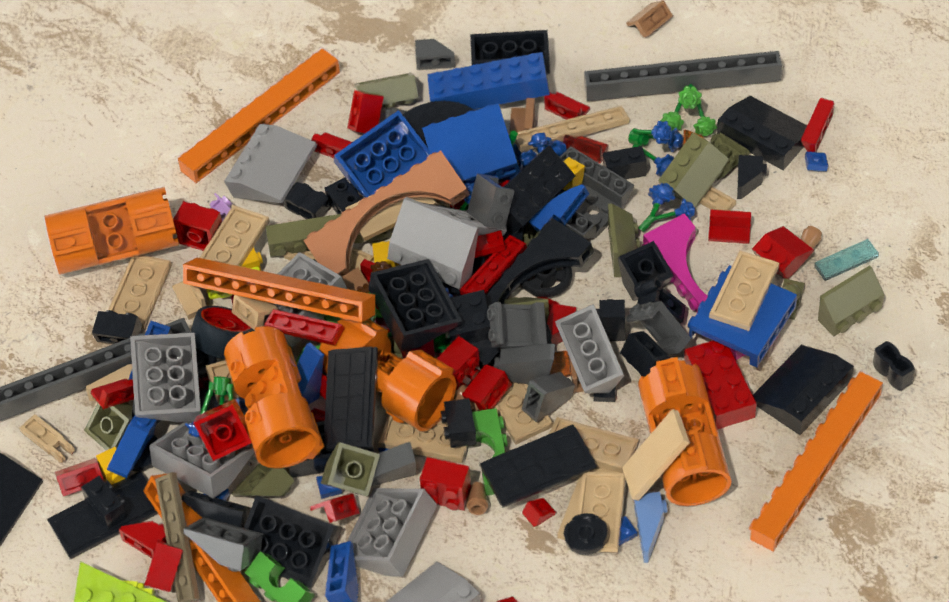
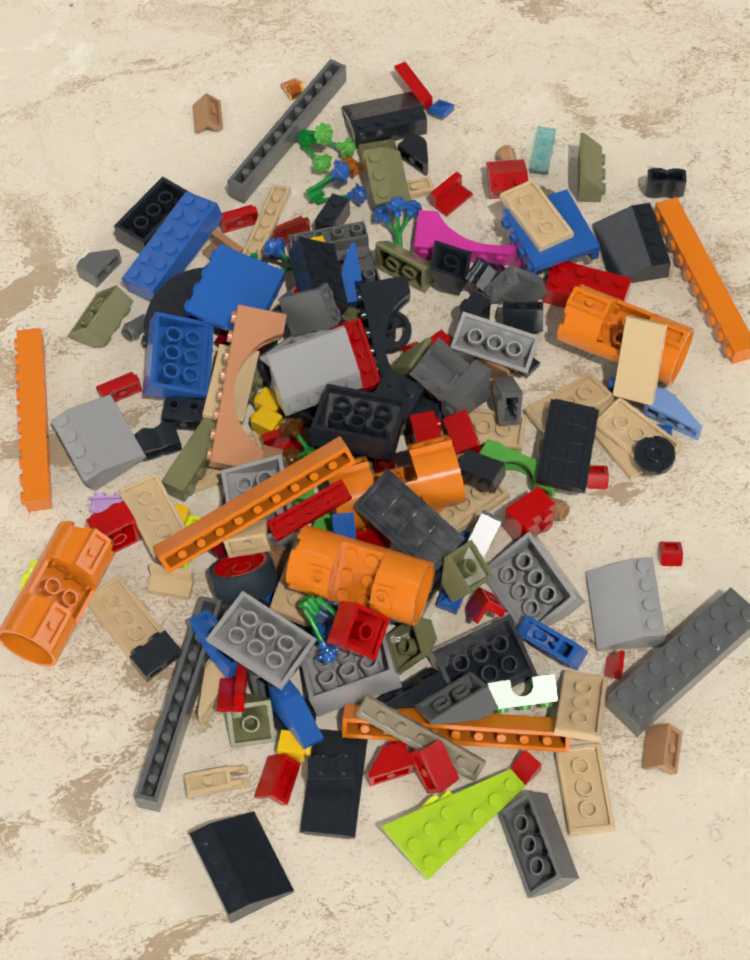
camera: 55 degrees left, 5 degrees up
(364, 111) = (112, 344): red panel -> none
(736, 49) = (292, 88): none -> clear orange slope

